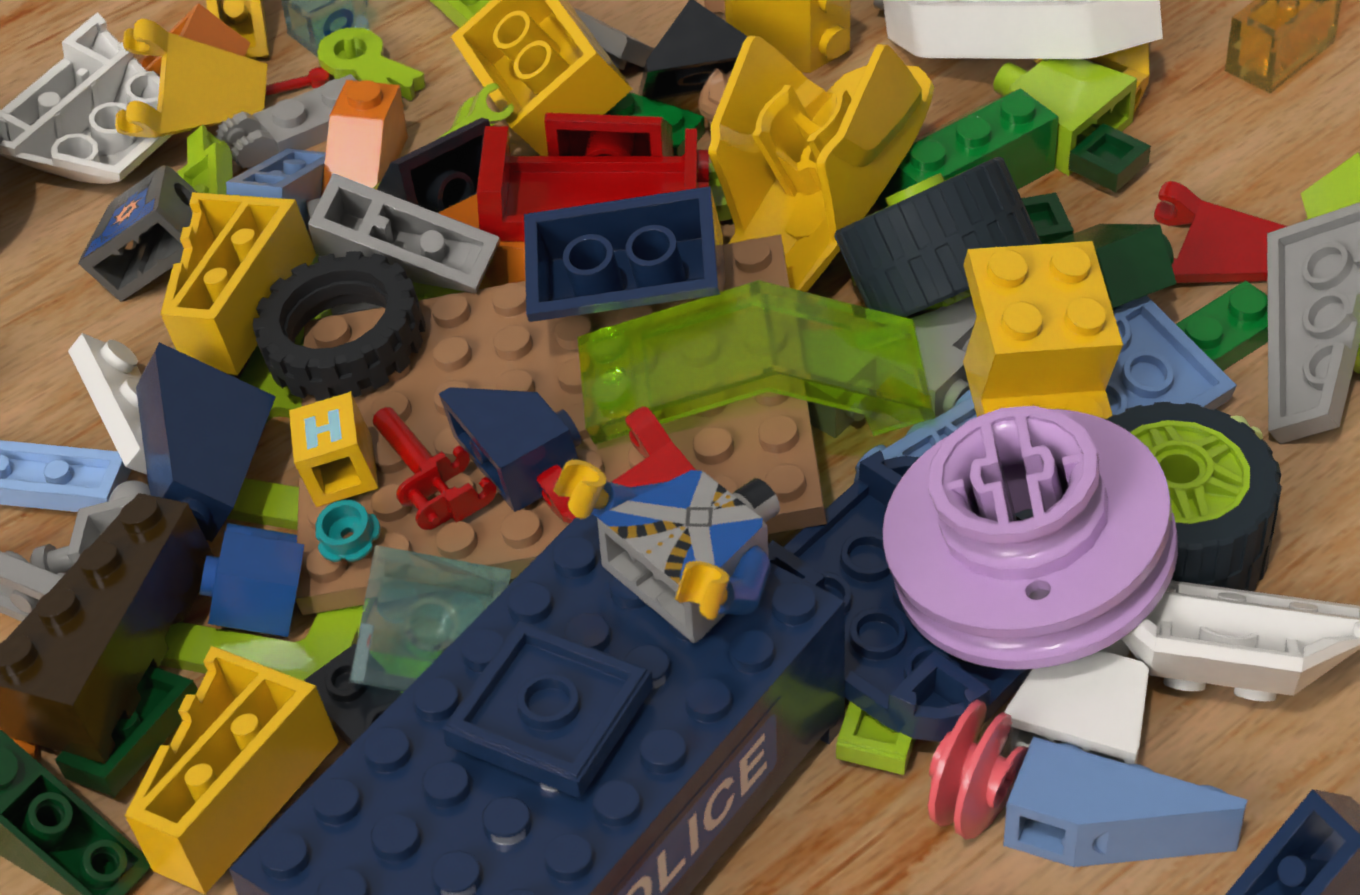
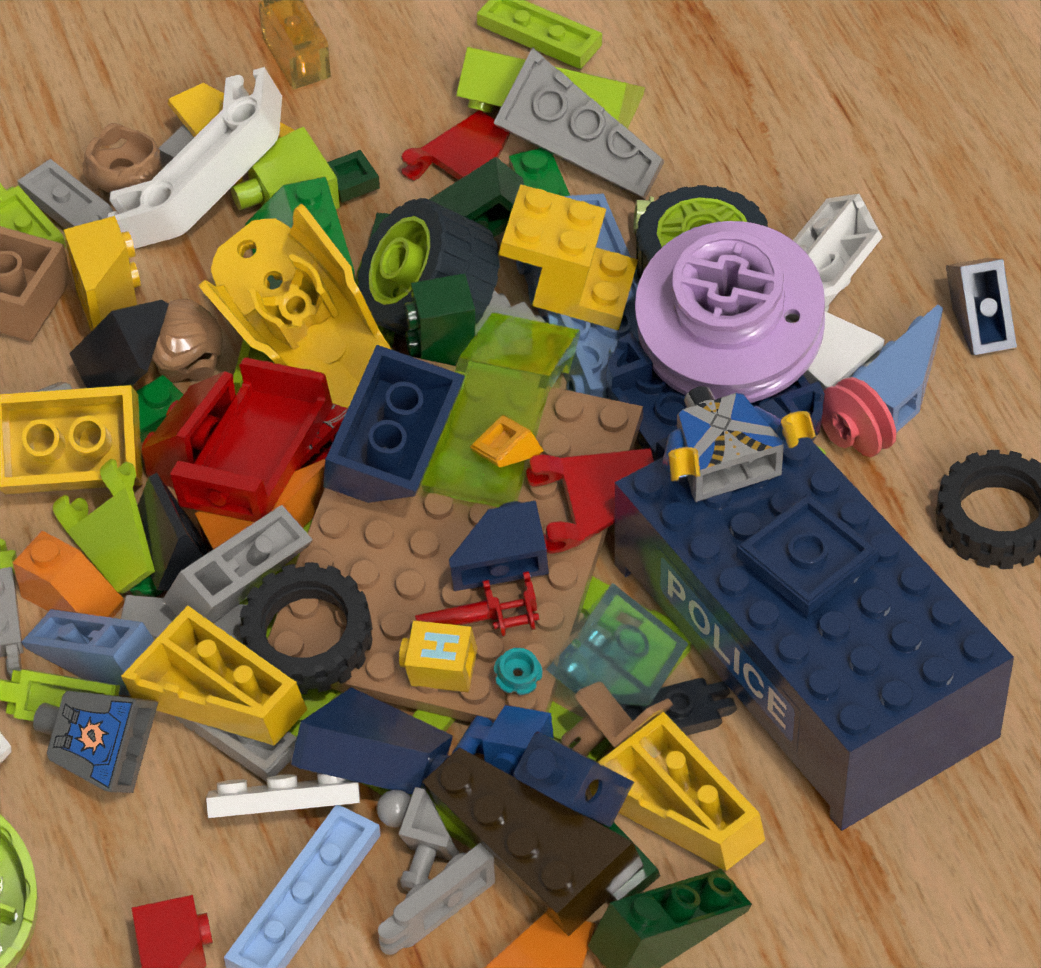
camera: 70 degrees left, 5 degrees up
(161, 613) = (567, 774): none -> dark blue torso
(310, 638) = (606, 719): none -> medium nougat bracket
(651, 376) = (506, 443): none -> light orange slope
(836, 249) = (440, 319): none -> dark green slope

